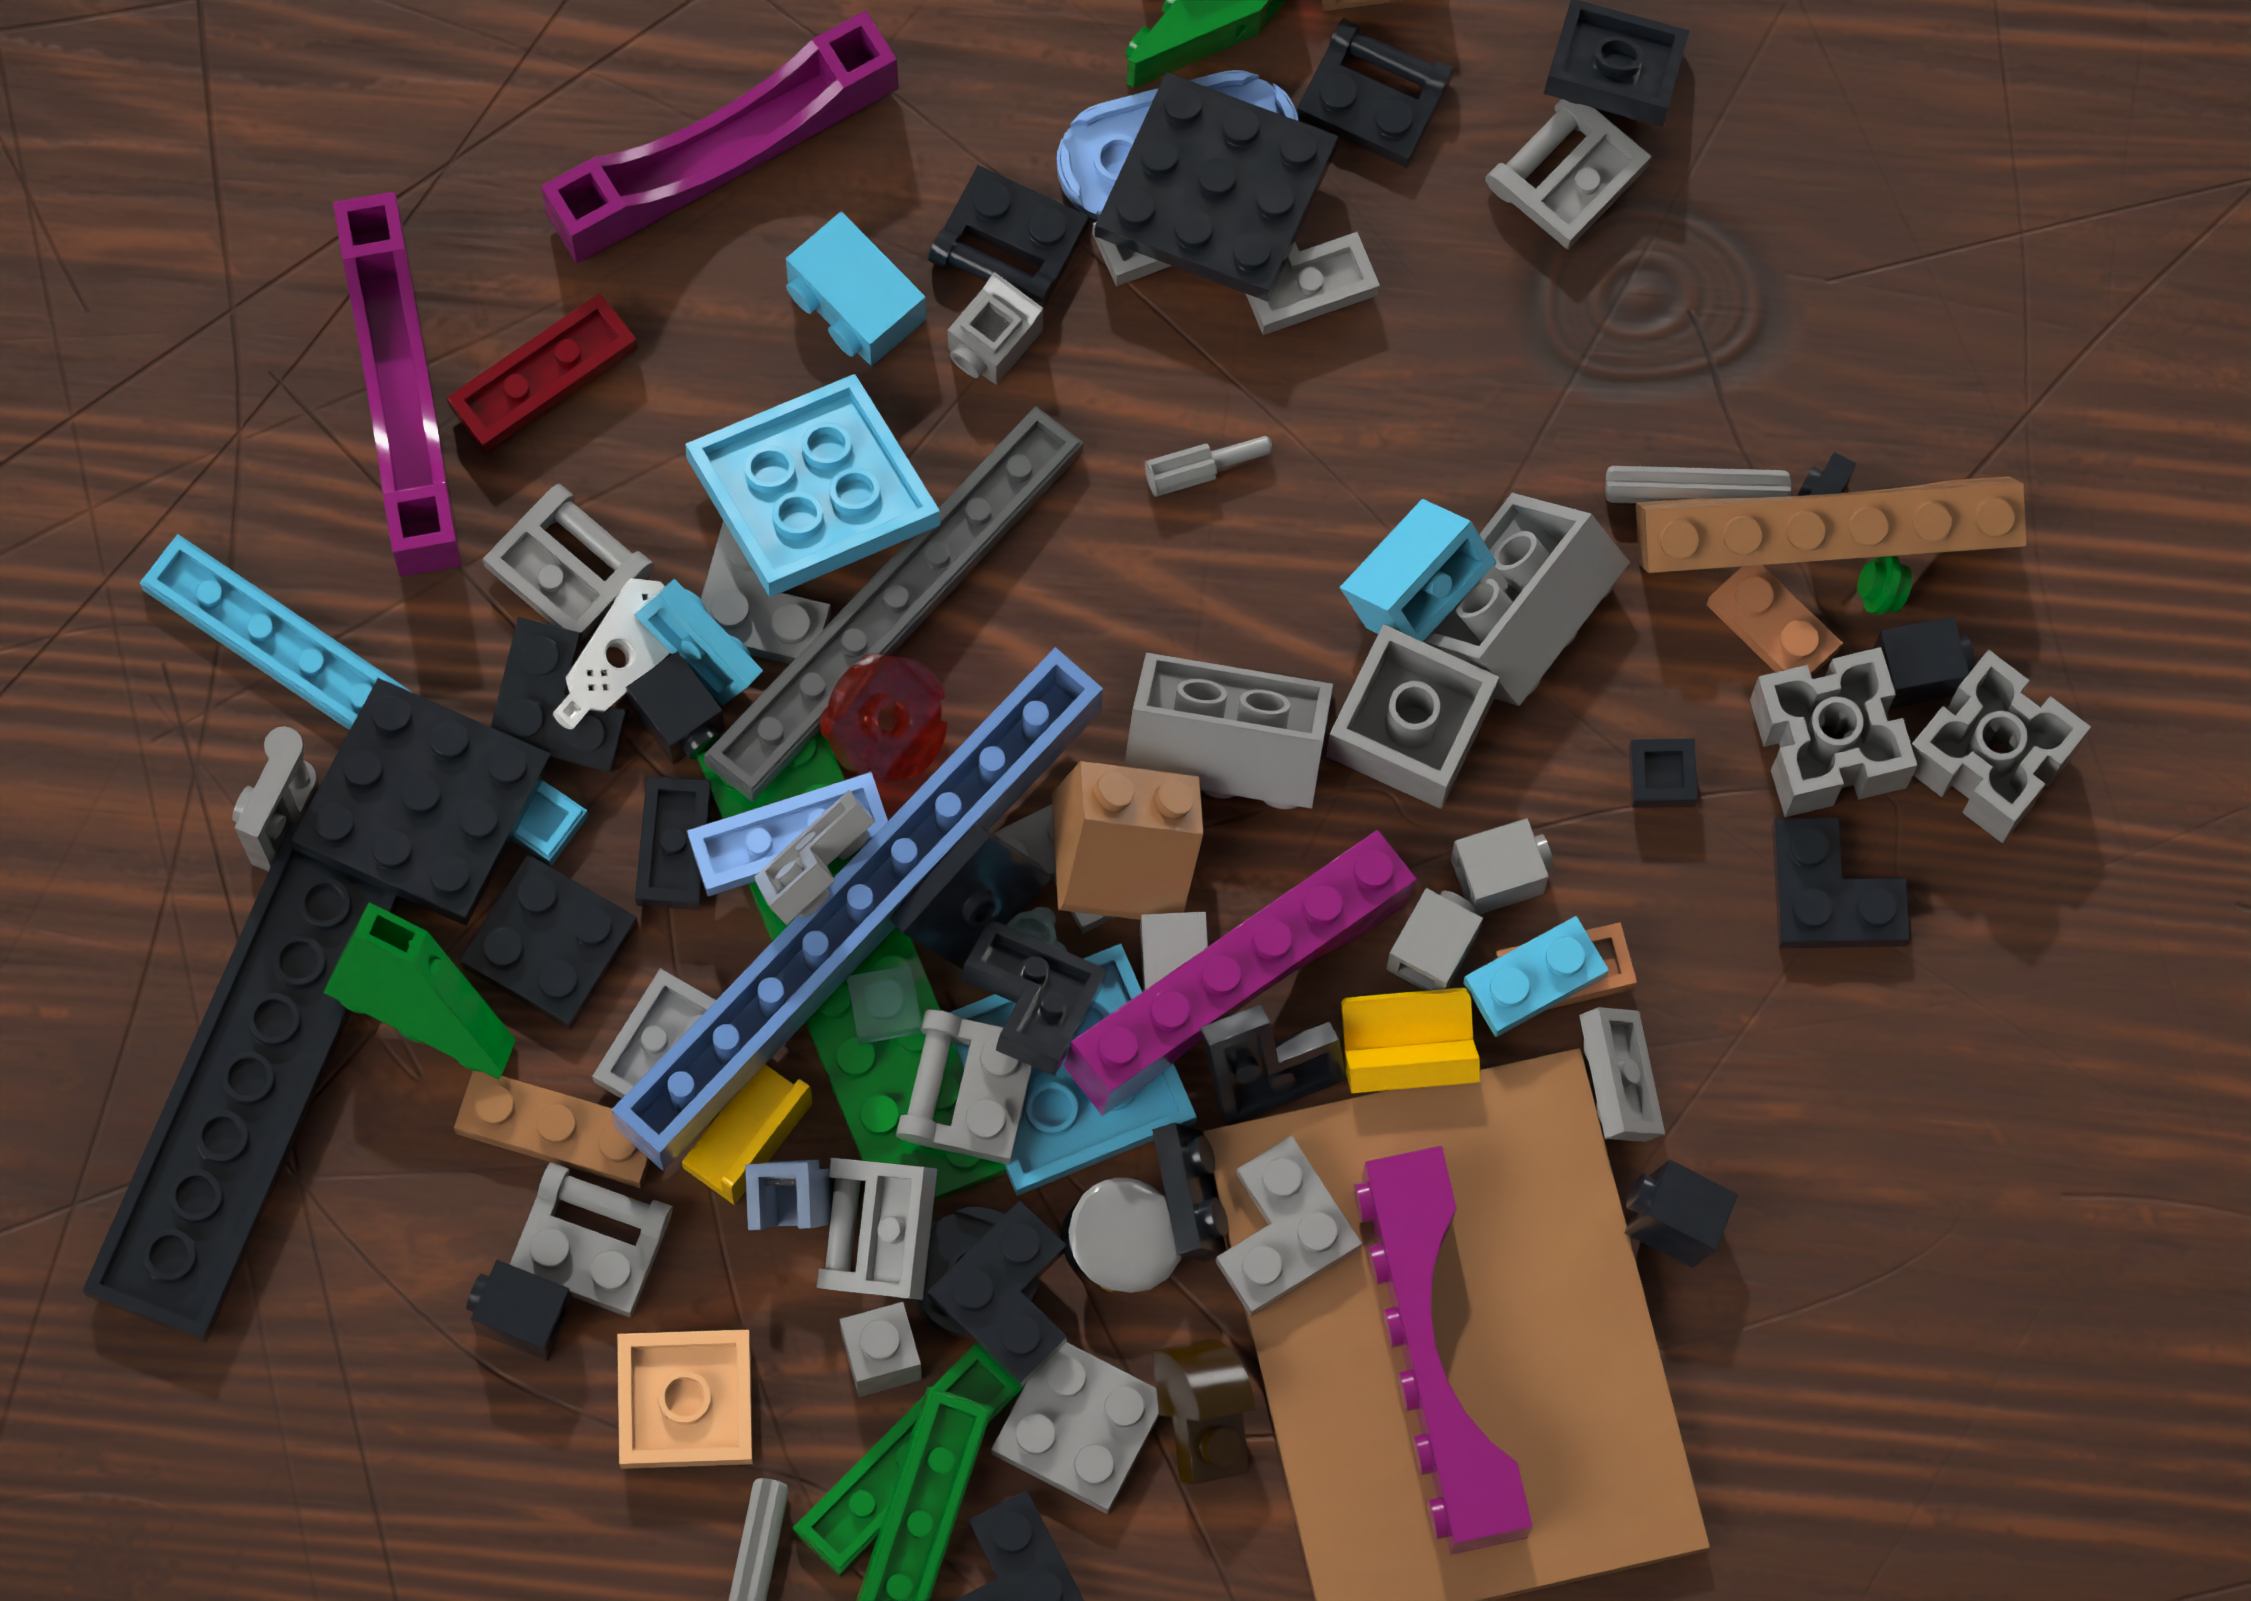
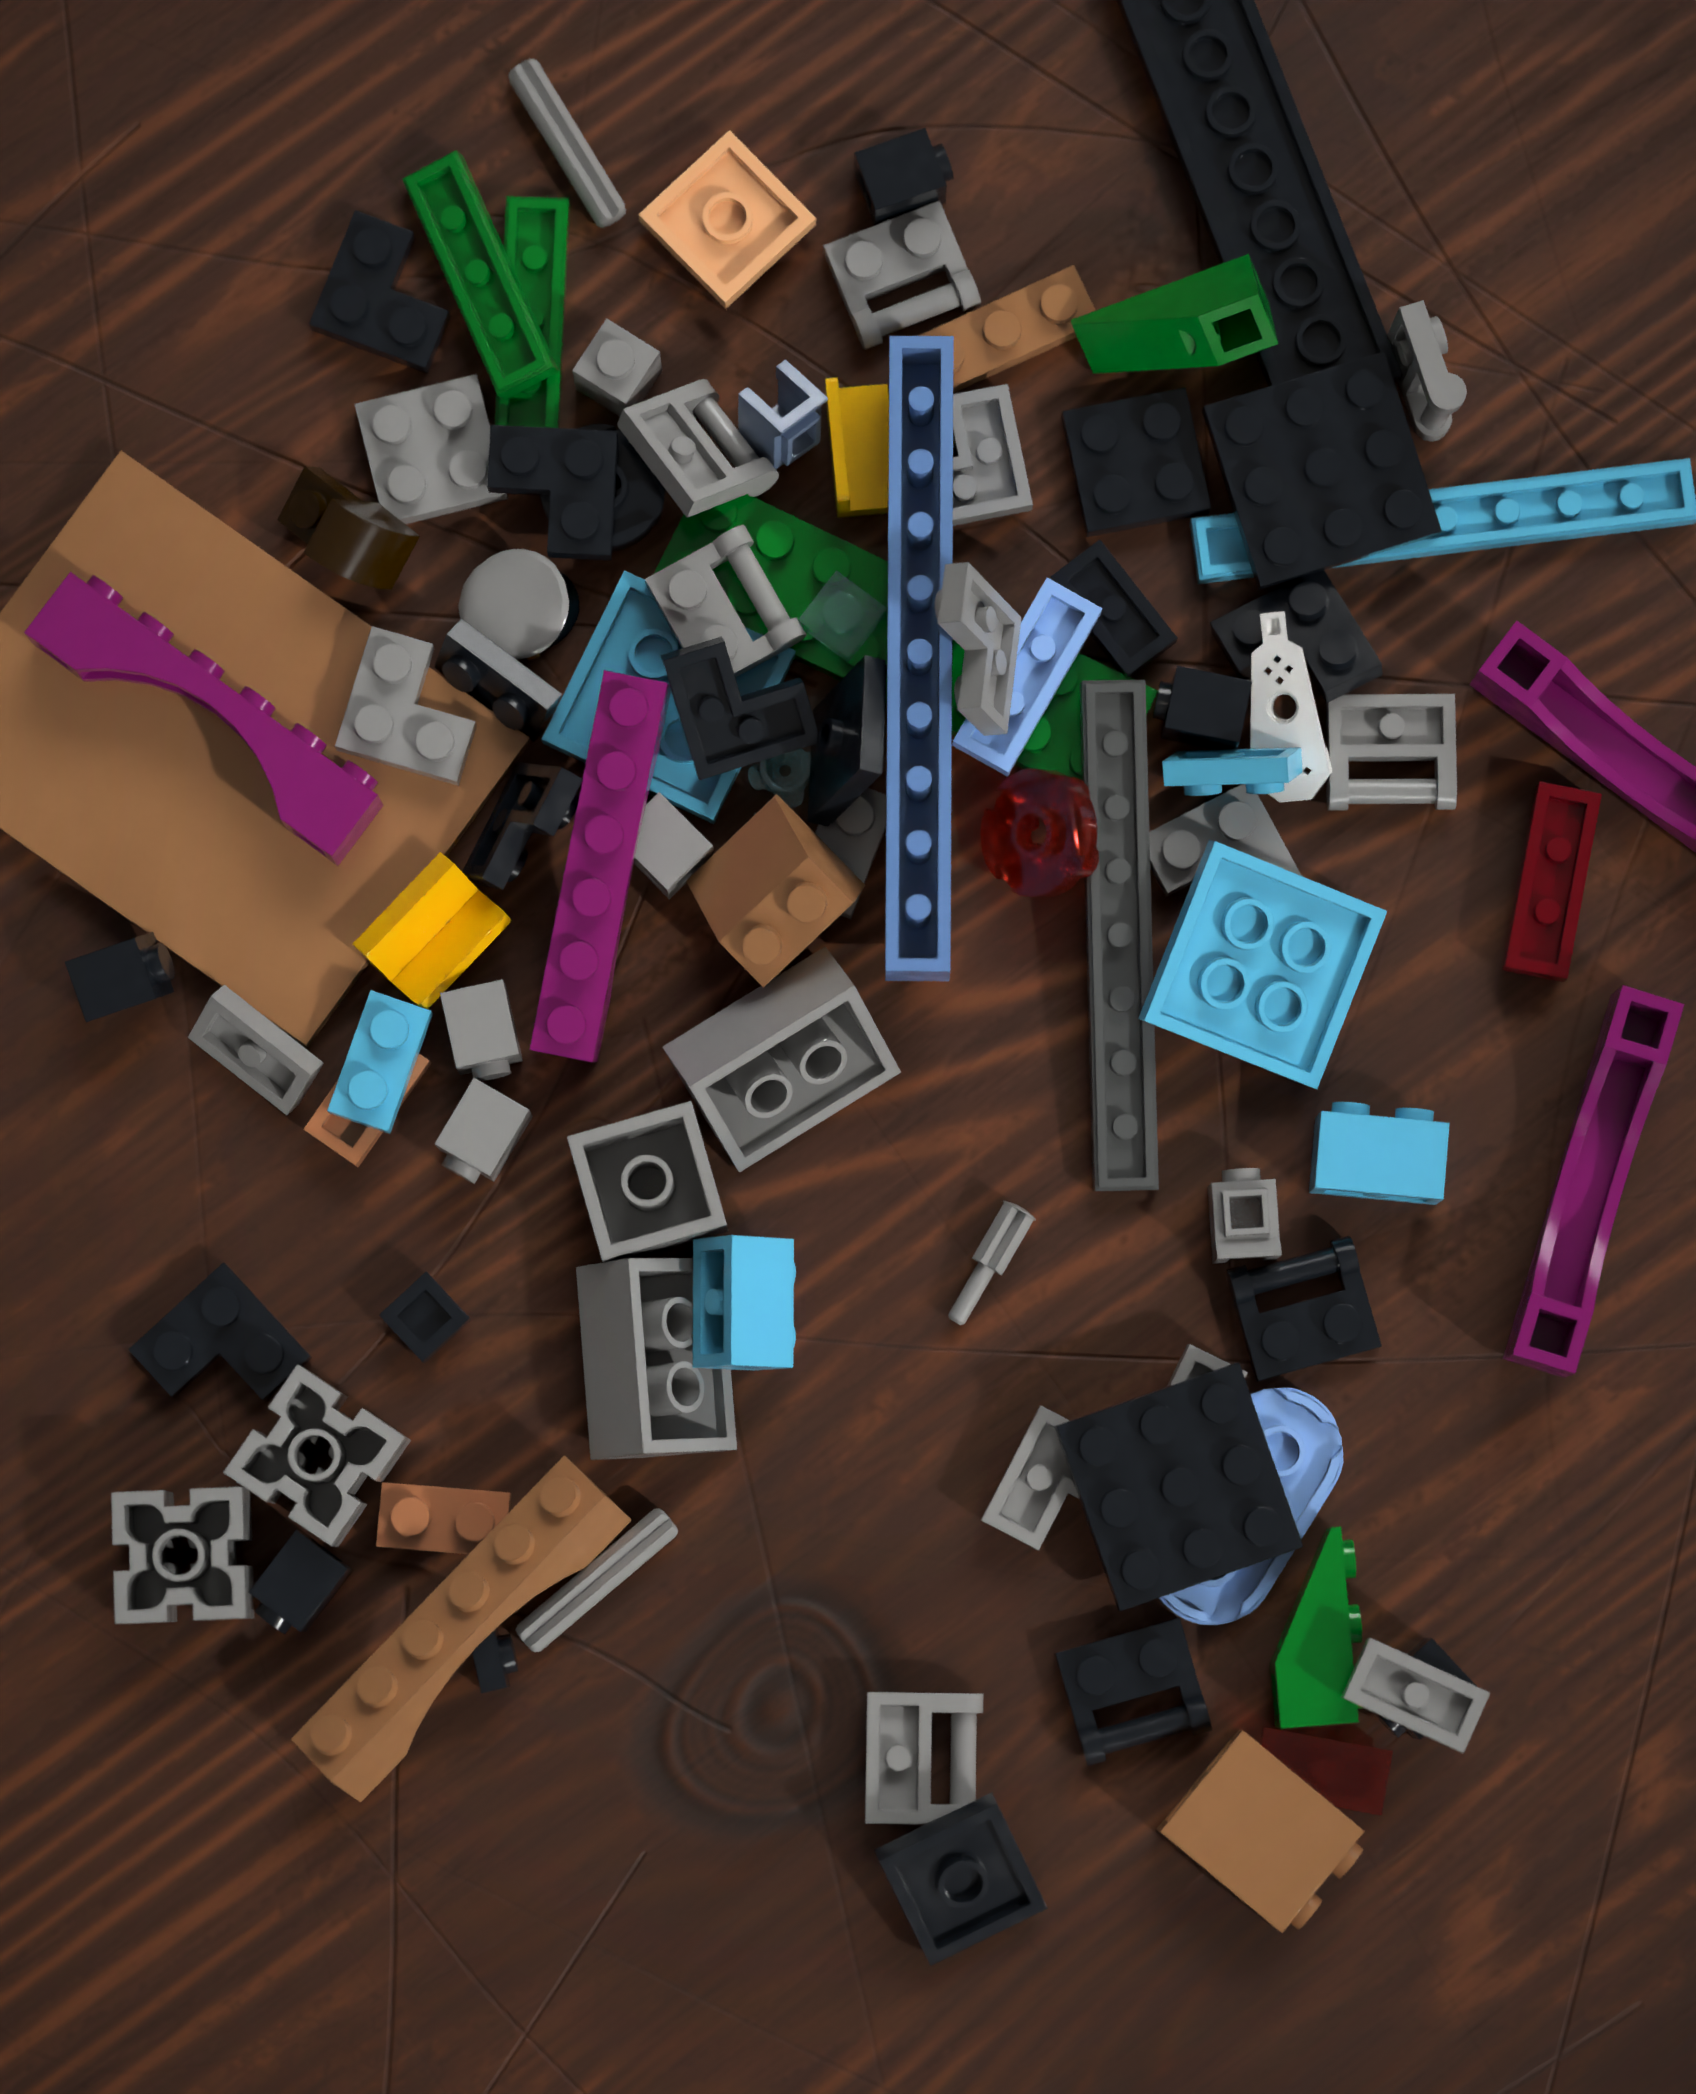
camera: 140 degrees right, 10 degrees up
(1884, 585) = (378, 1618): green plate -> none

